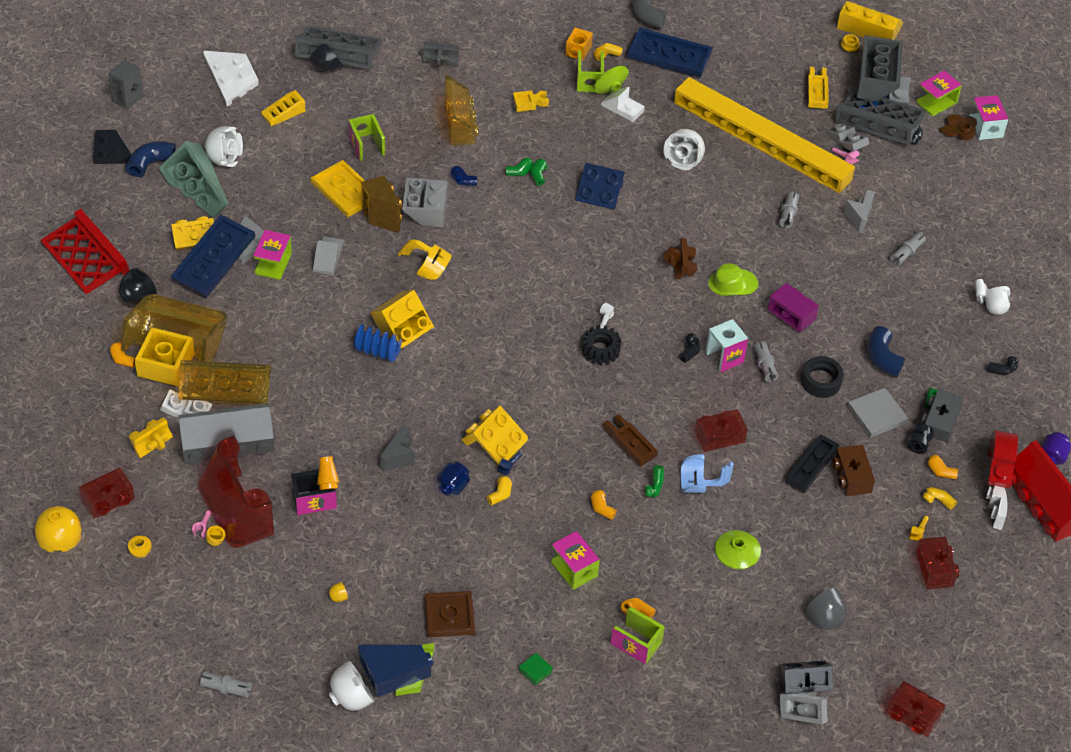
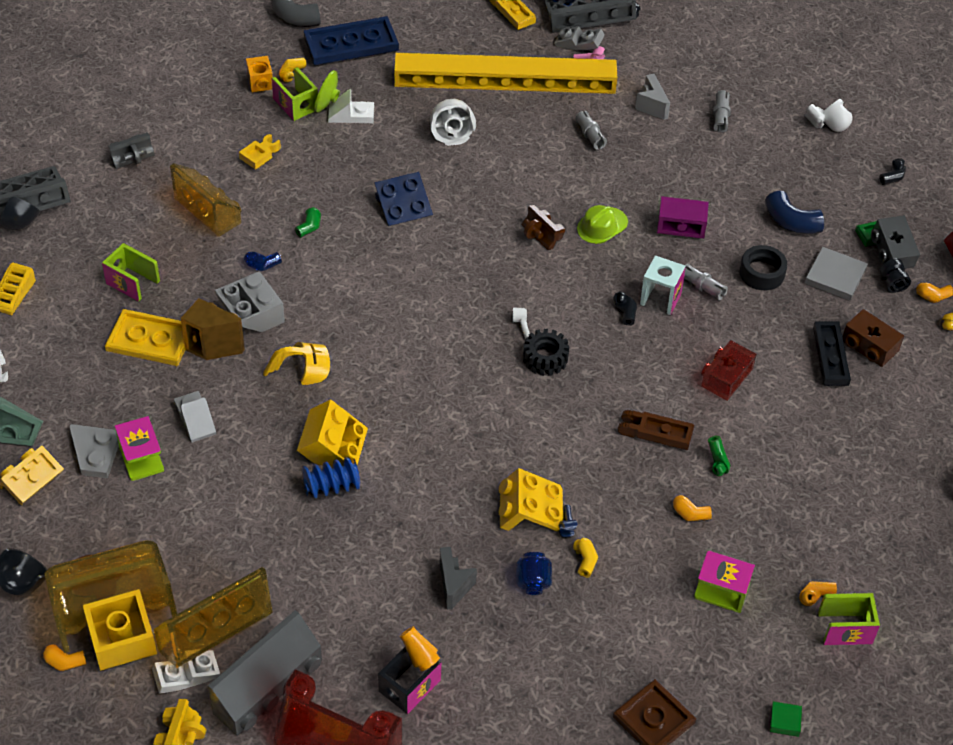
camera: 35 degrees left, 0 degrees up
(213, 256) = (76, 487): dark blue plate -> none
(536, 171) = (328, 215): green arm -> none
(696, 464) = (737, 417): light blue helmet -> none
(736, 556) = (841, 483): lime dish -> none

